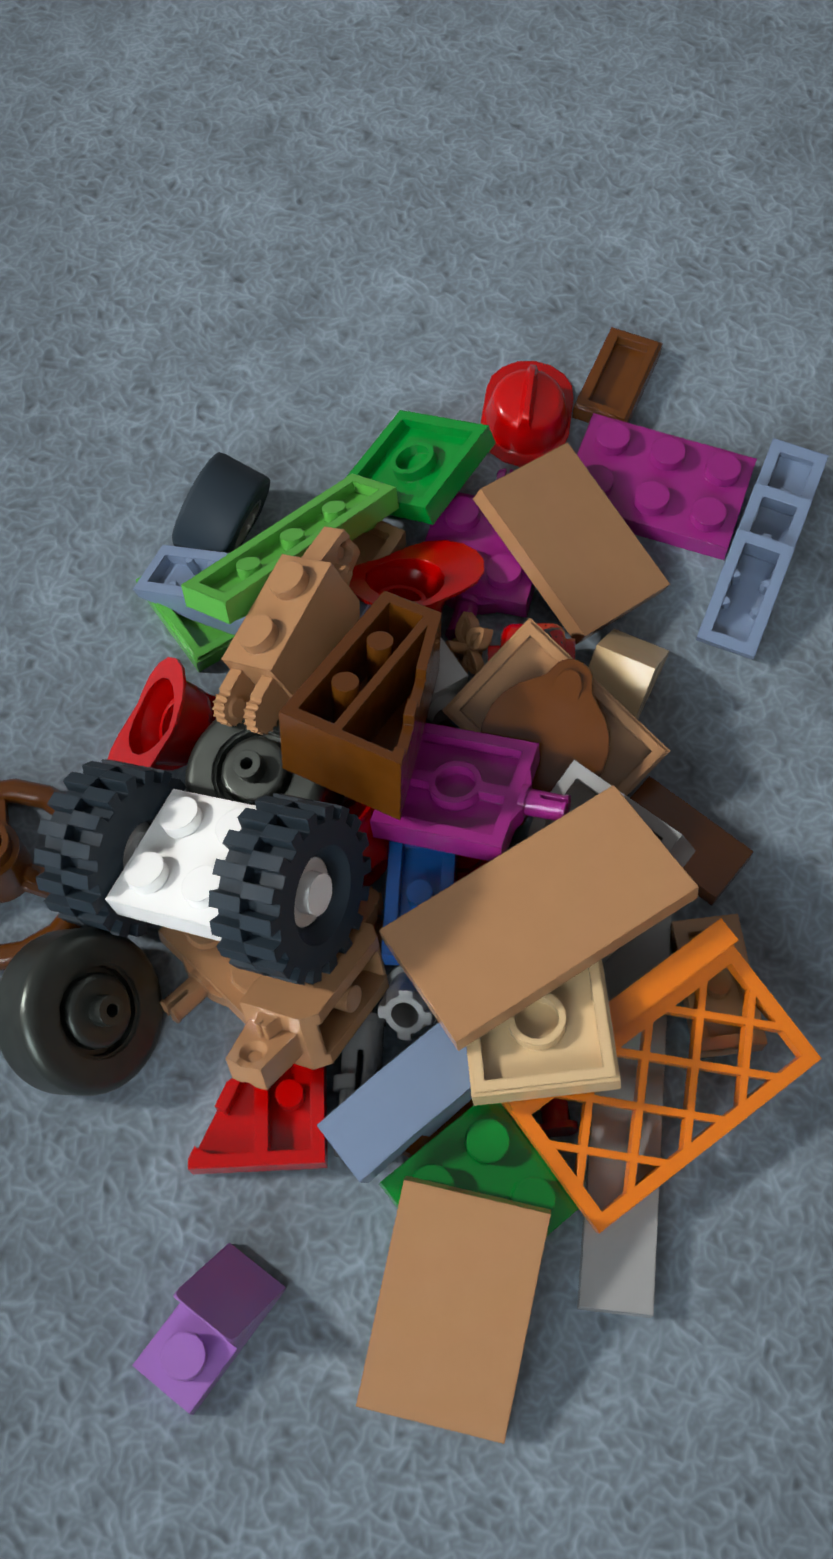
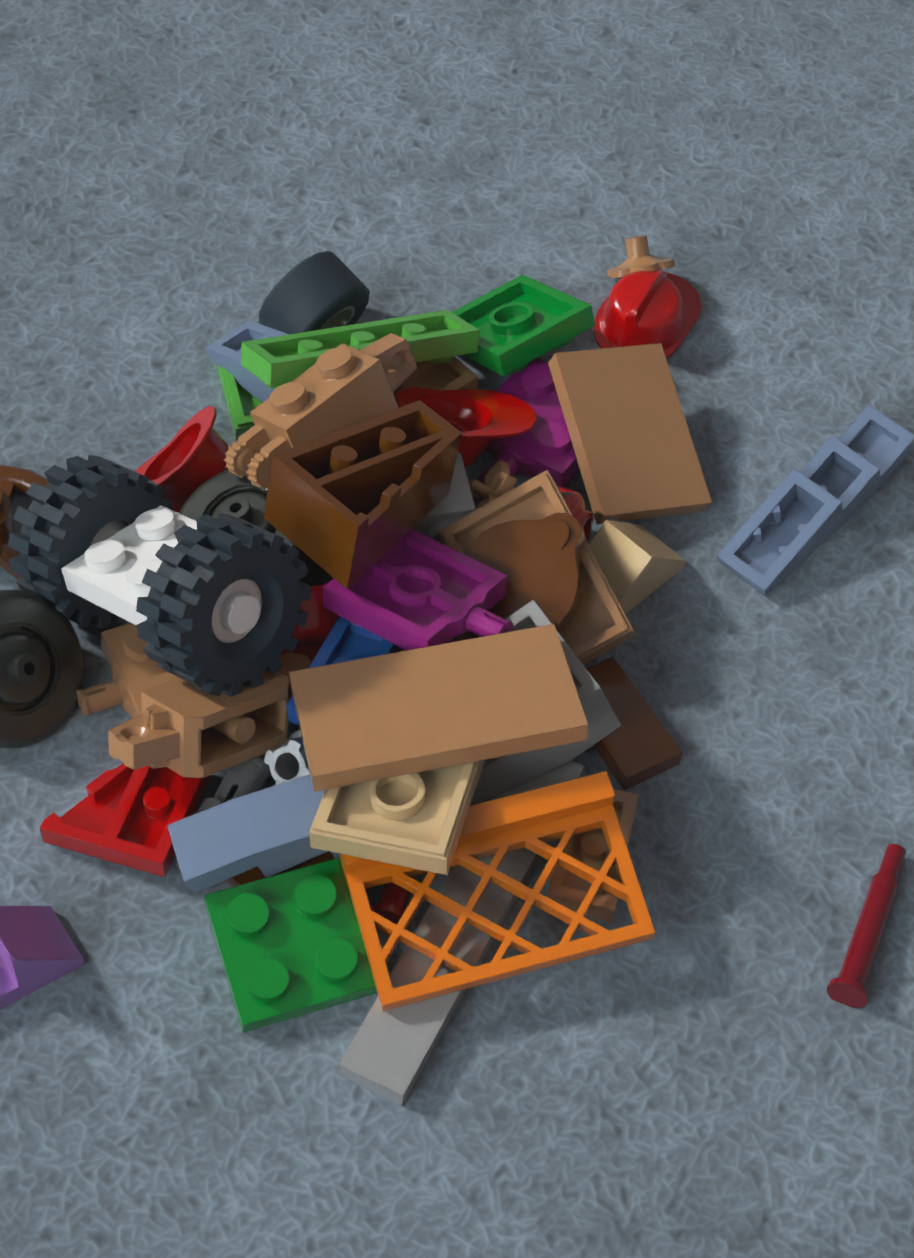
camera: 15 degrees right, 10 degrees down
(454, 1309) = (223, 1017): medium nougat tile -> none
(502, 360) = (639, 259): none -> medium nougat plant
(618, 377) = (747, 314): reddish brown tile -> none
(668, 484) = (749, 415): magenta plate -> none

